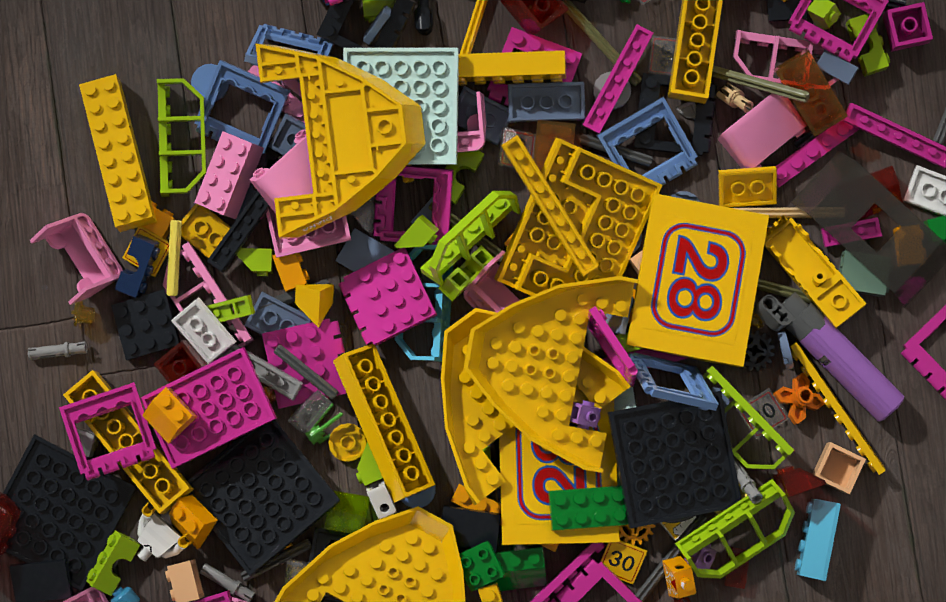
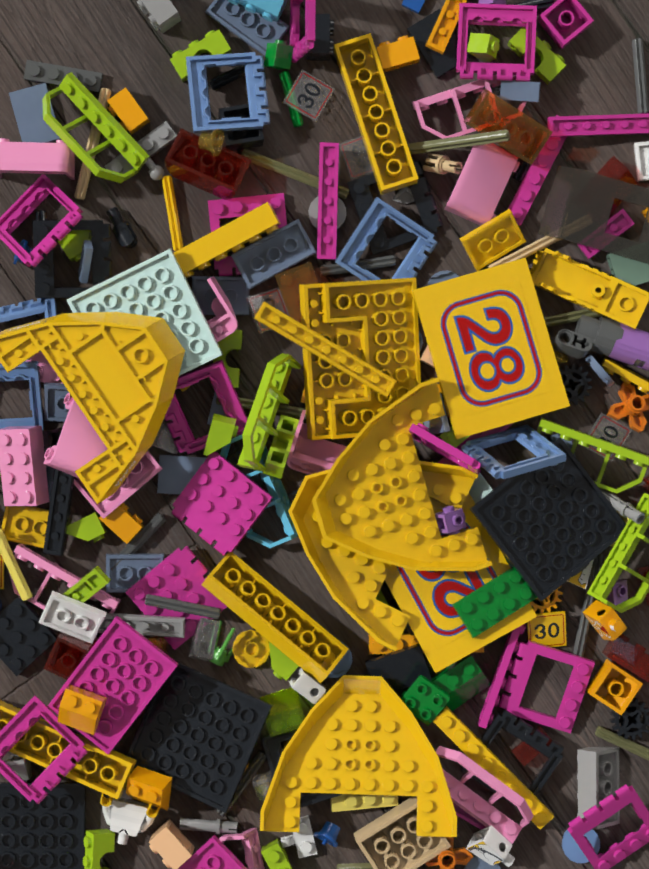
camera: 30 degrees left, 5 degrees up
(314, 300) = (157, 538): yellow slope -> none

